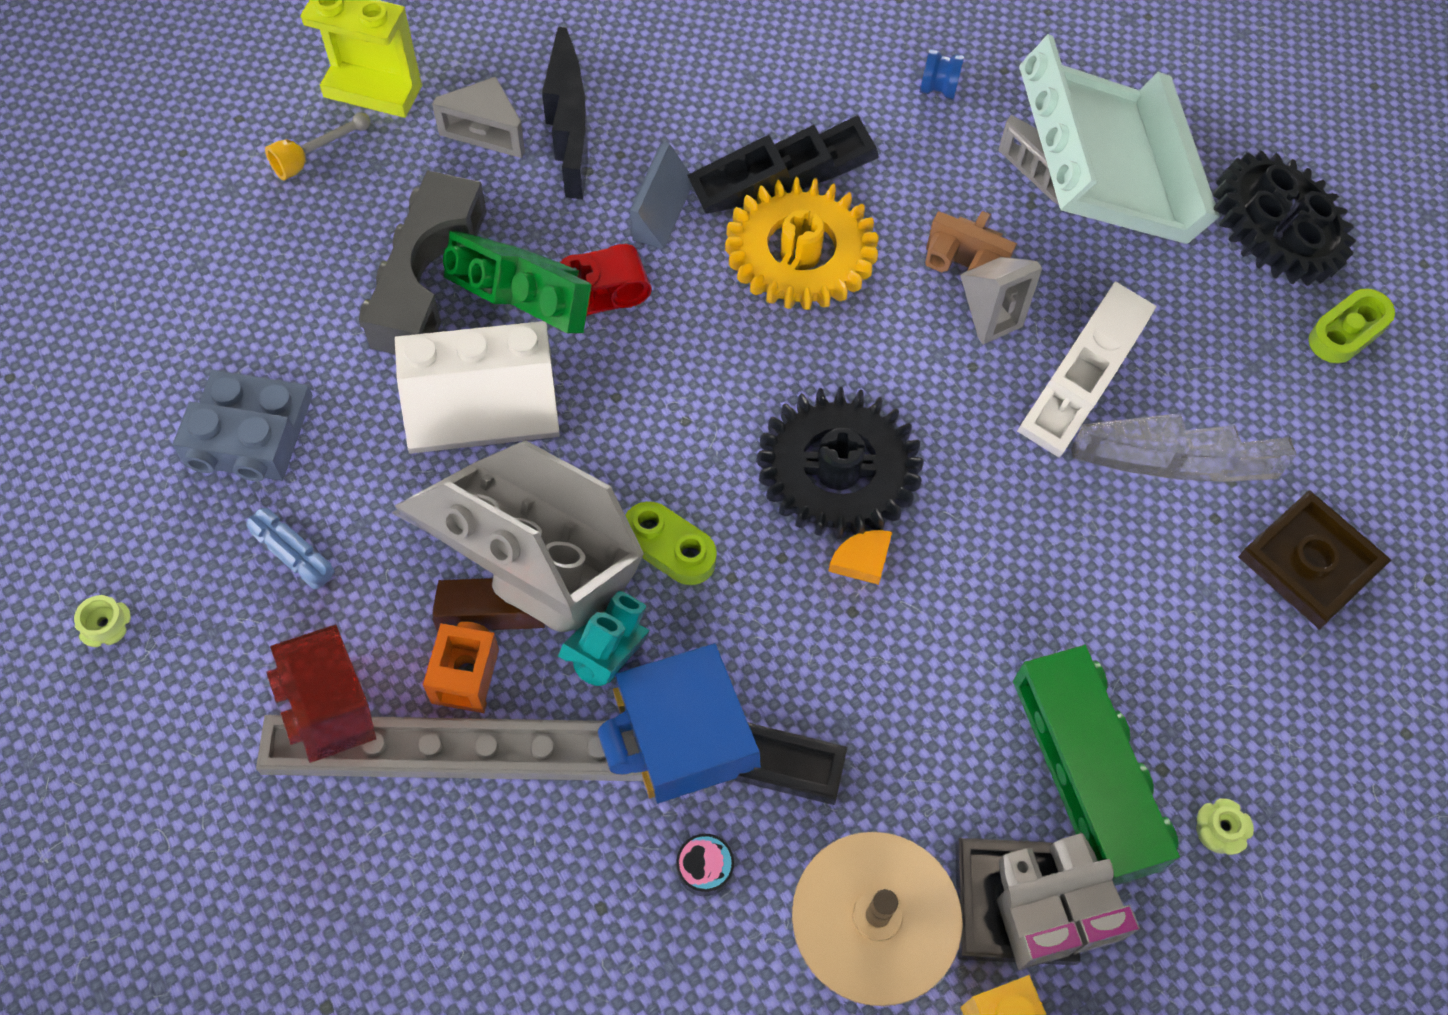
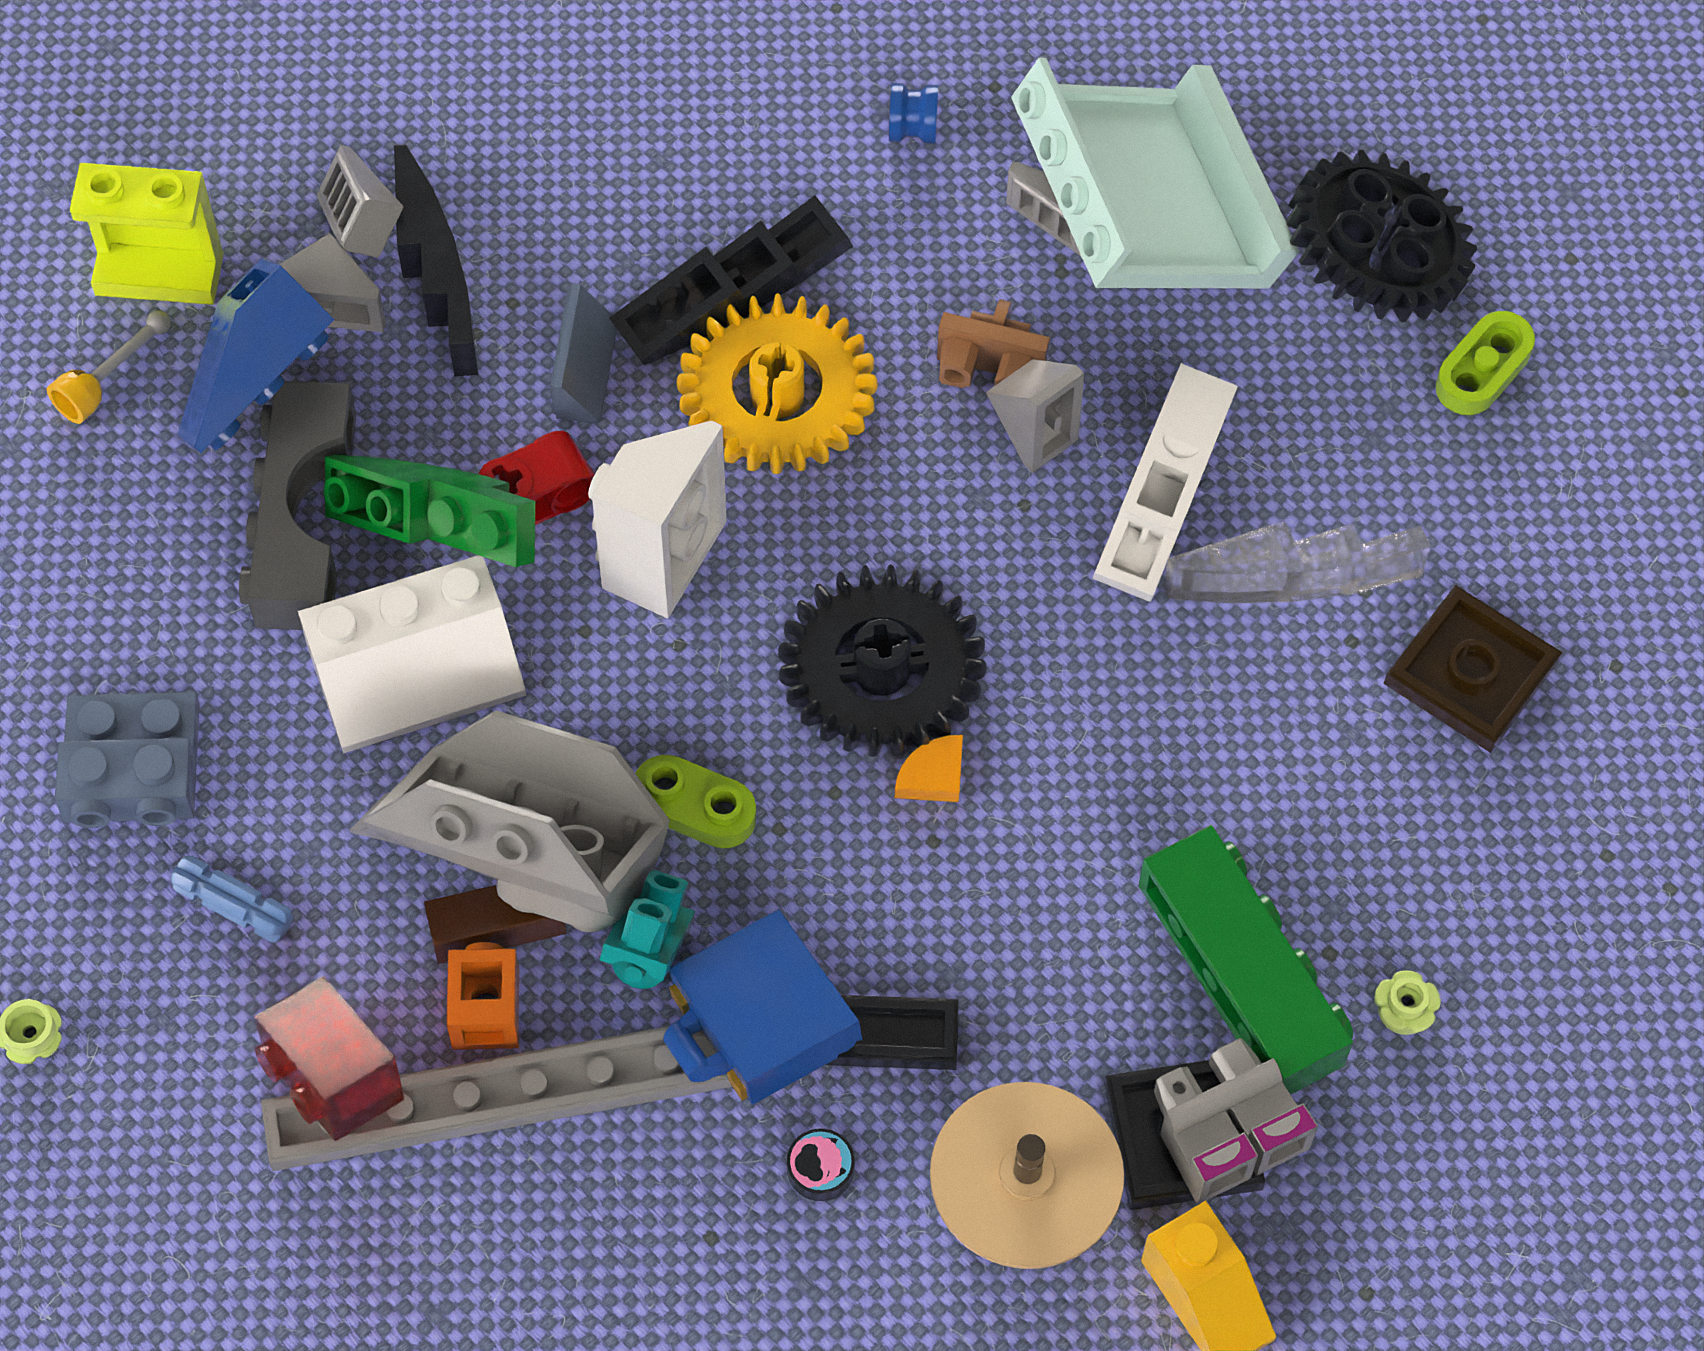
camera: 10 degrees left, 0 degrees up
(416, 130) = (250, 342): none -> blue slope
(523, 64) = (357, 204): none -> light grey slope
(688, 312) = (659, 514): none -> white slope

